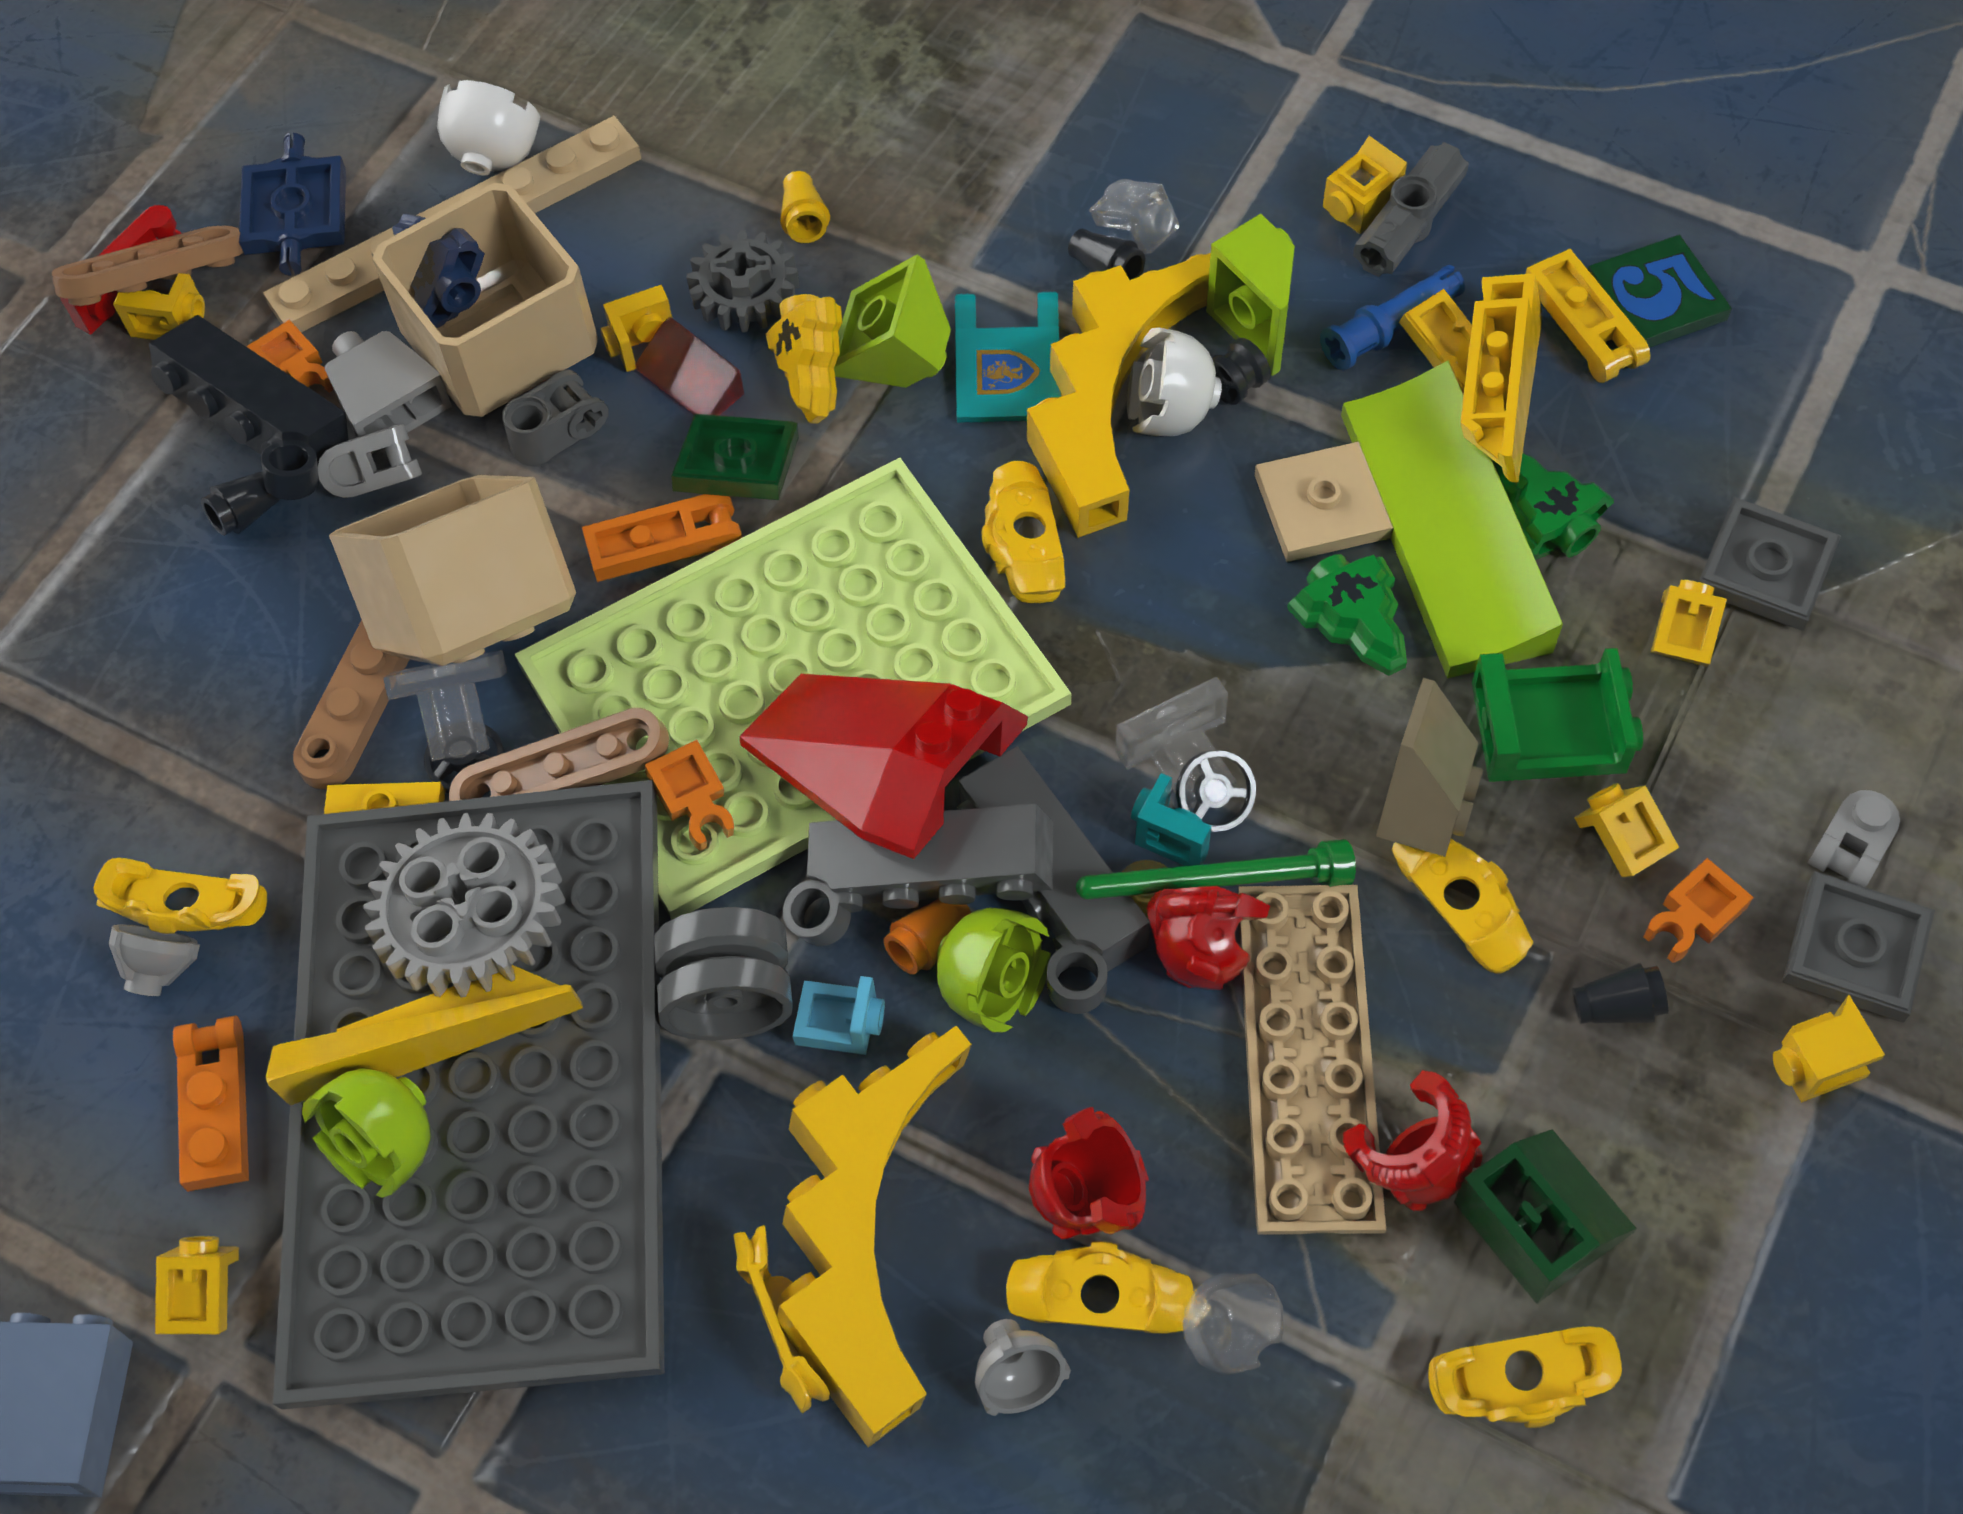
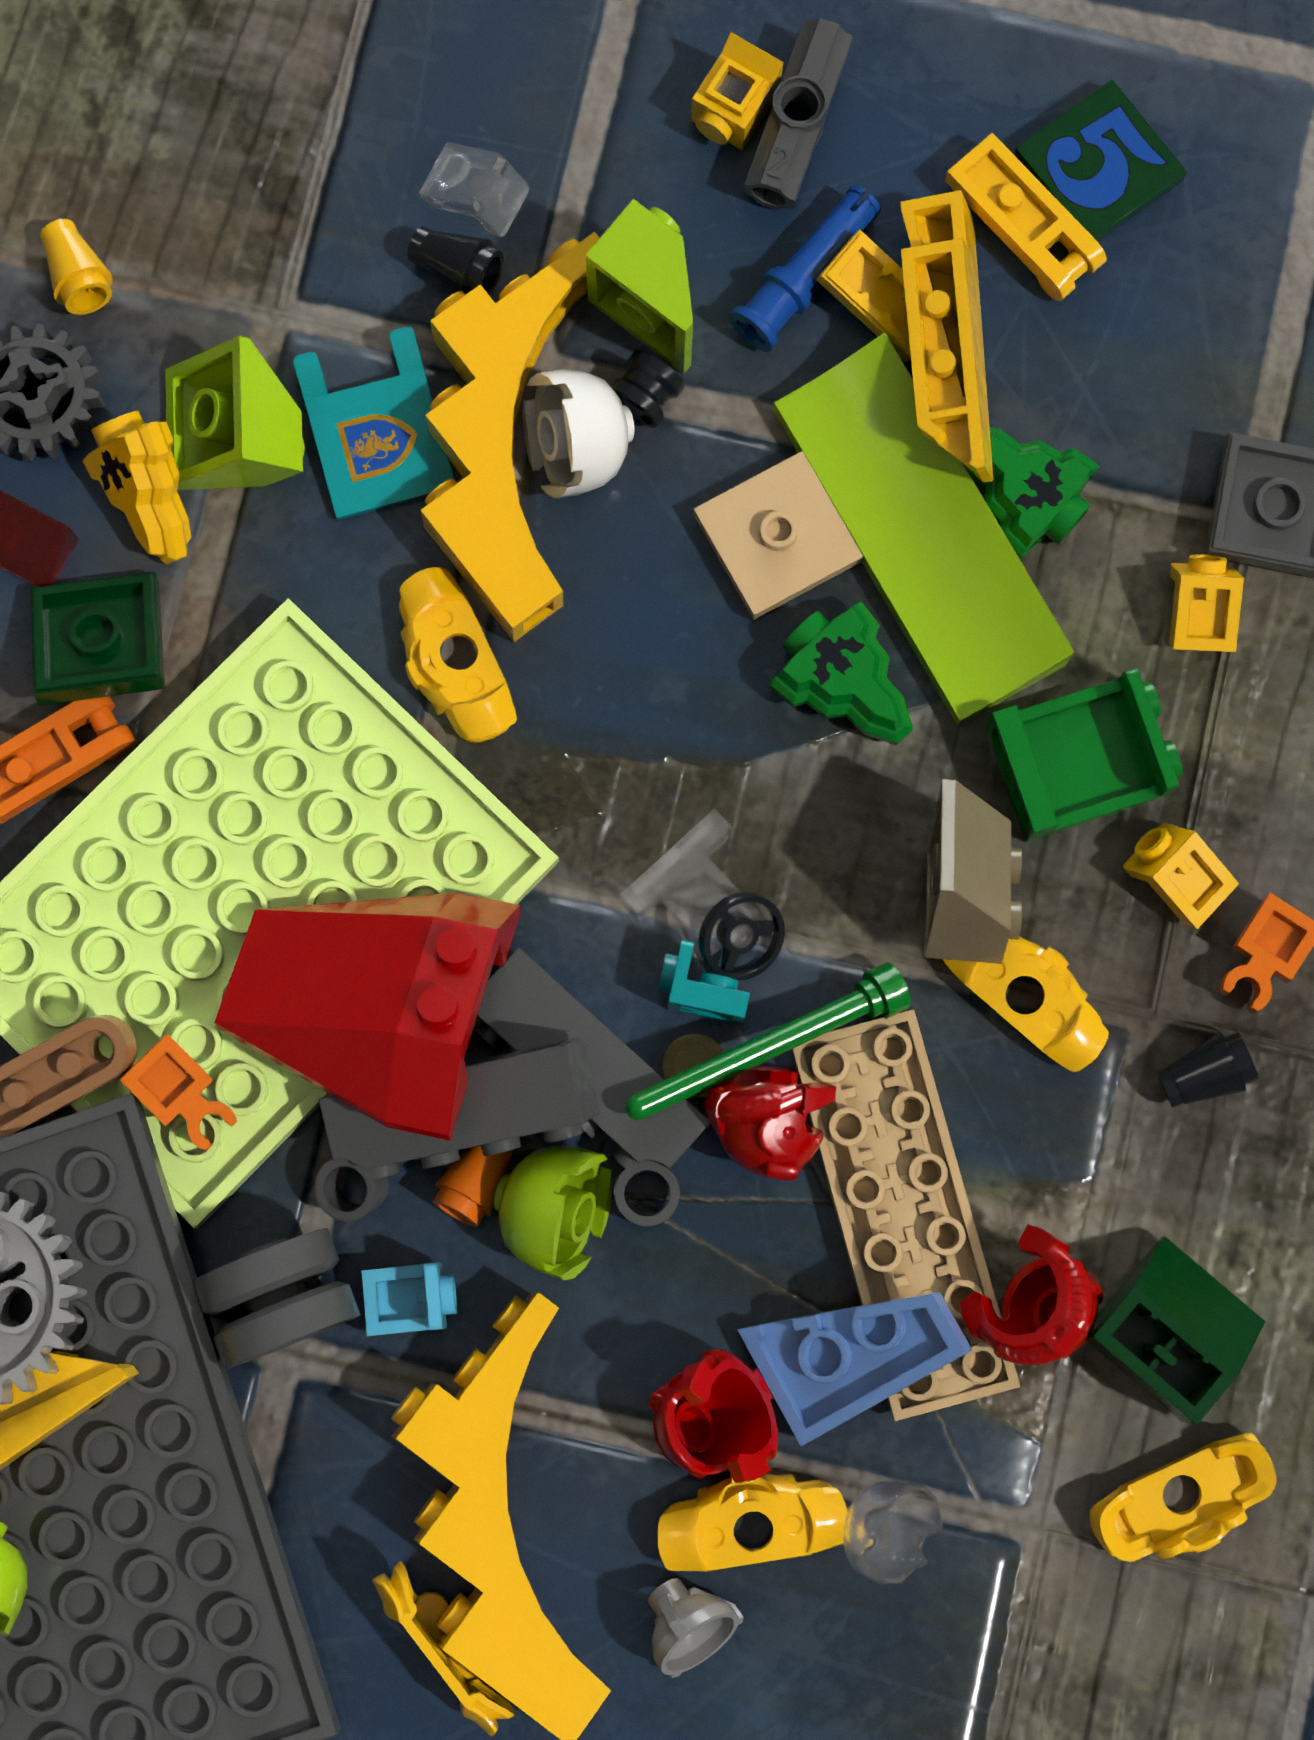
camera: 20 degrees left, 20 degrees up
(1226, 1160) = (851, 1358): none -> medium blue wing

